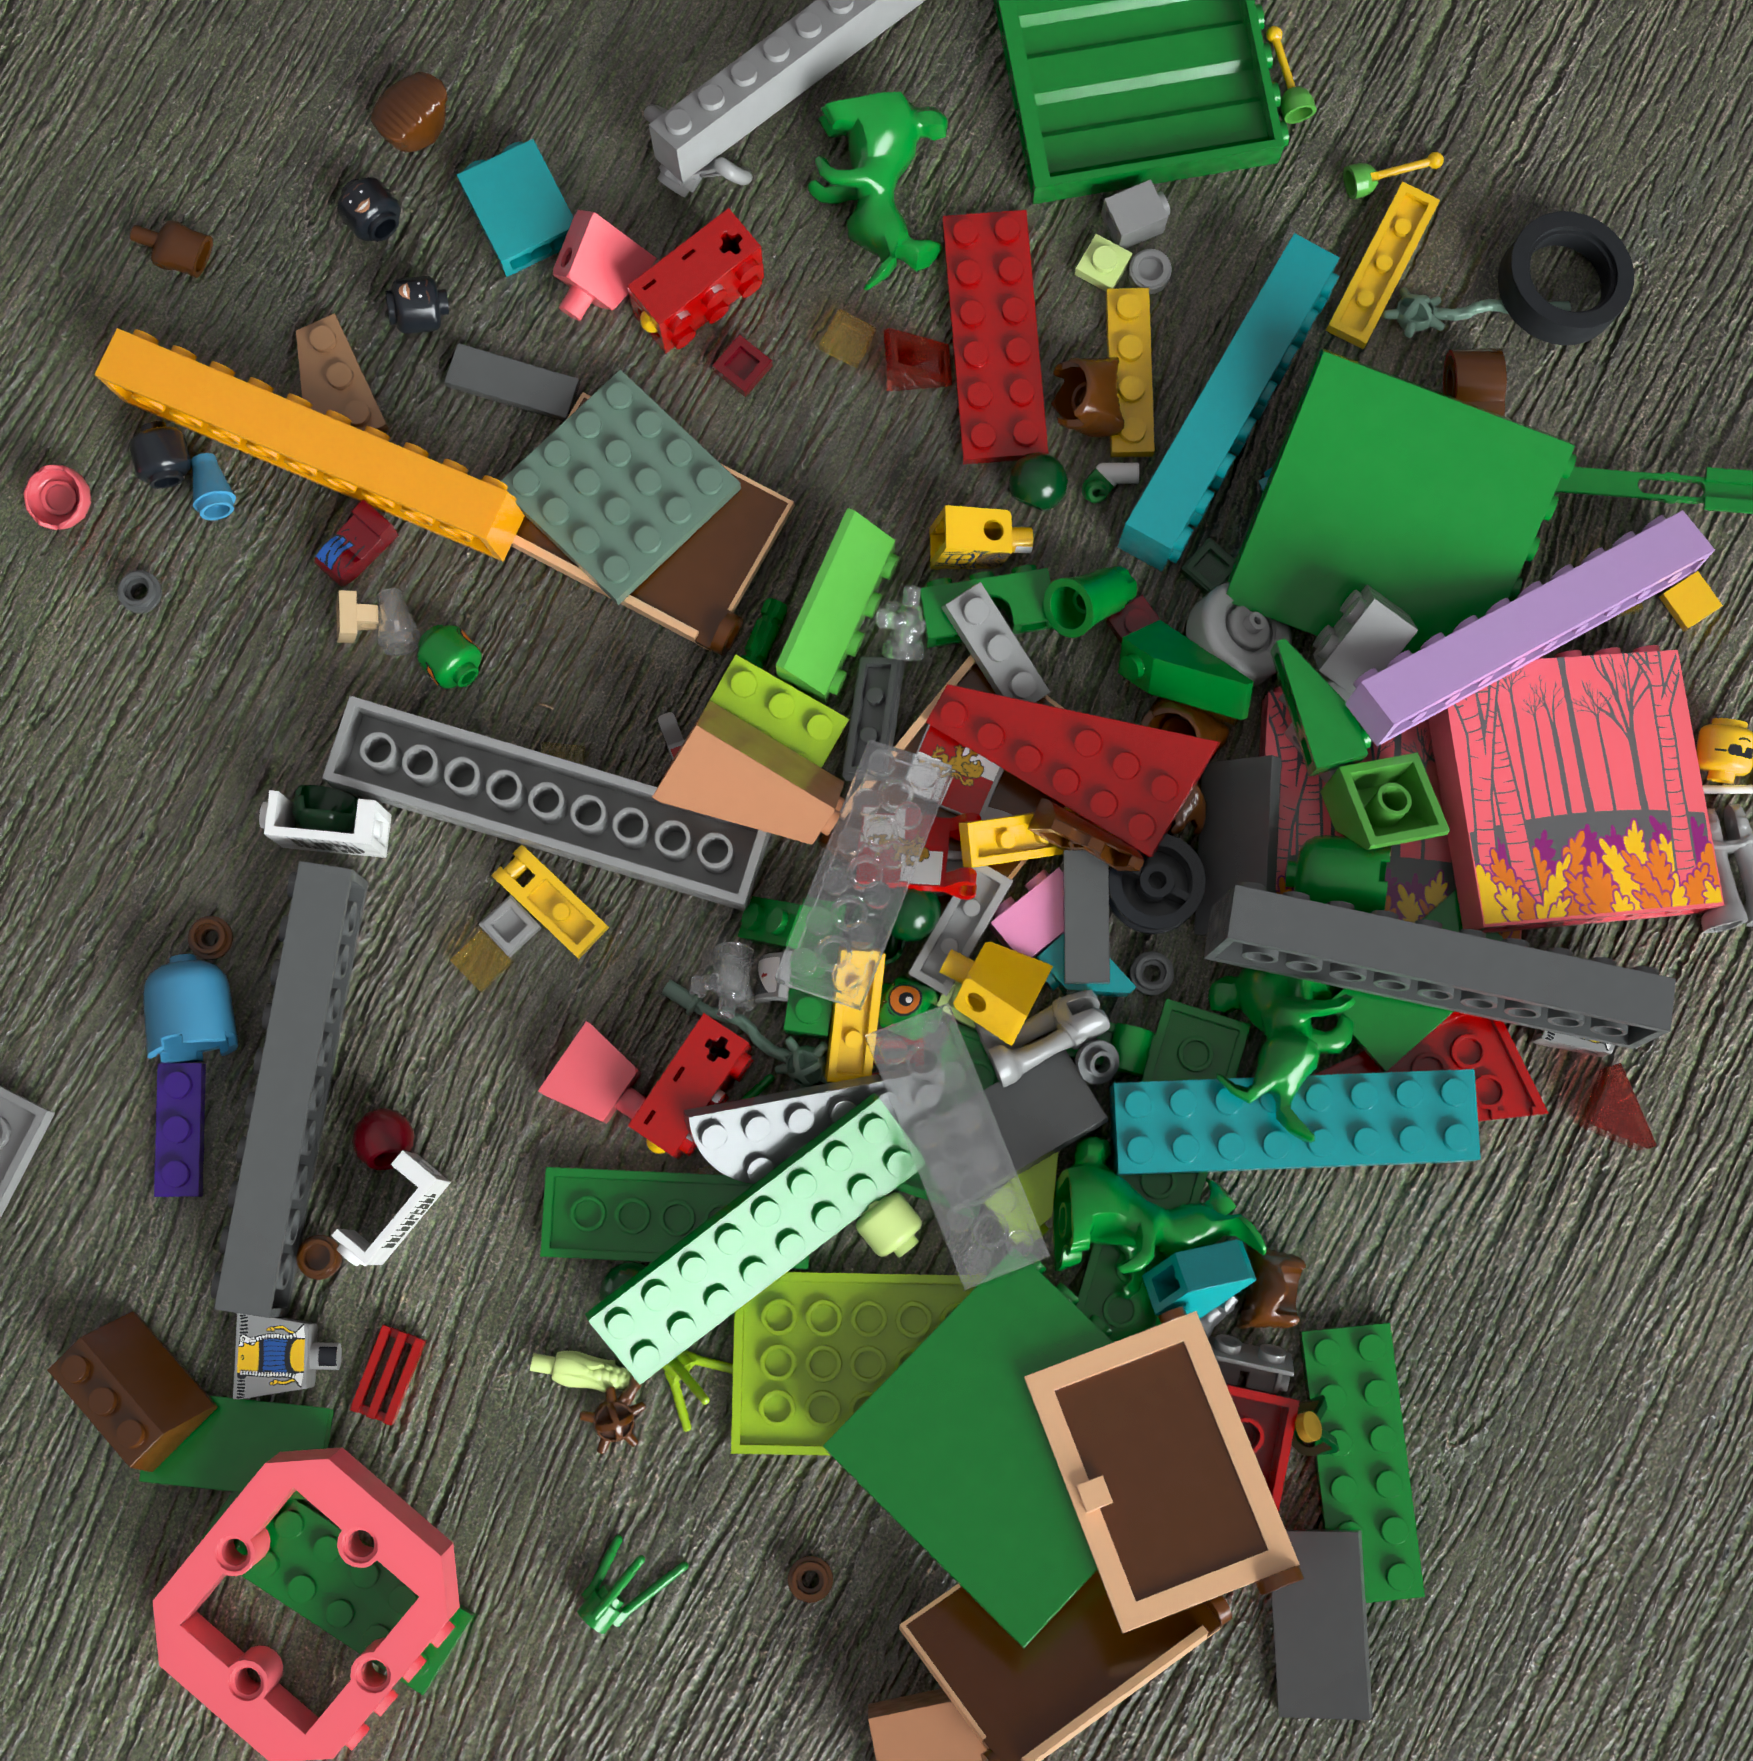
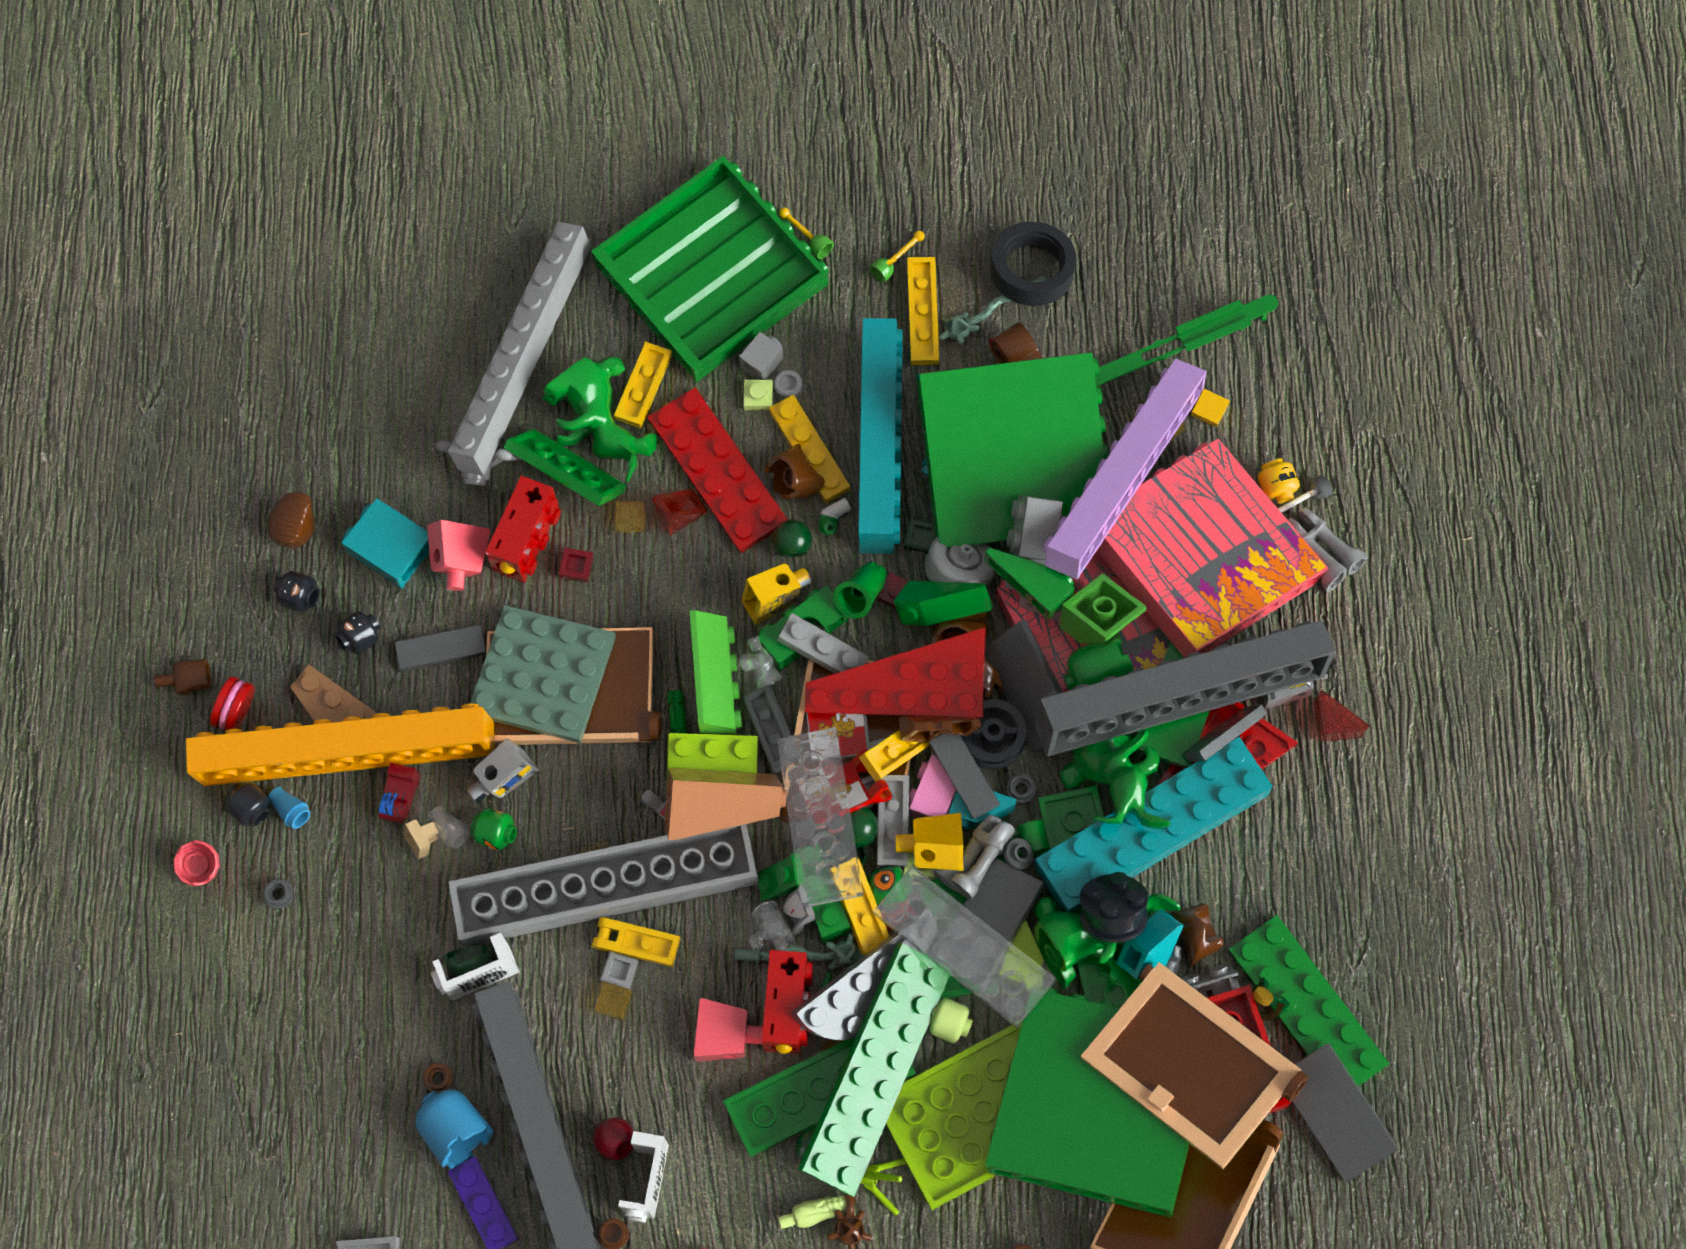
camera: 25 degrees left, 10 degrees down
(207, 315) = (232, 704): none -> red head
(500, 587) = (502, 771): none -> light grey torso
(797, 227) = (565, 467): none -> green tile
(960, 170) = (643, 385): none -> yellow plate
(1177, 1208) = (1113, 908): none -> black wheel
(1457, 1052) = (1224, 733): none -> dark grey tile

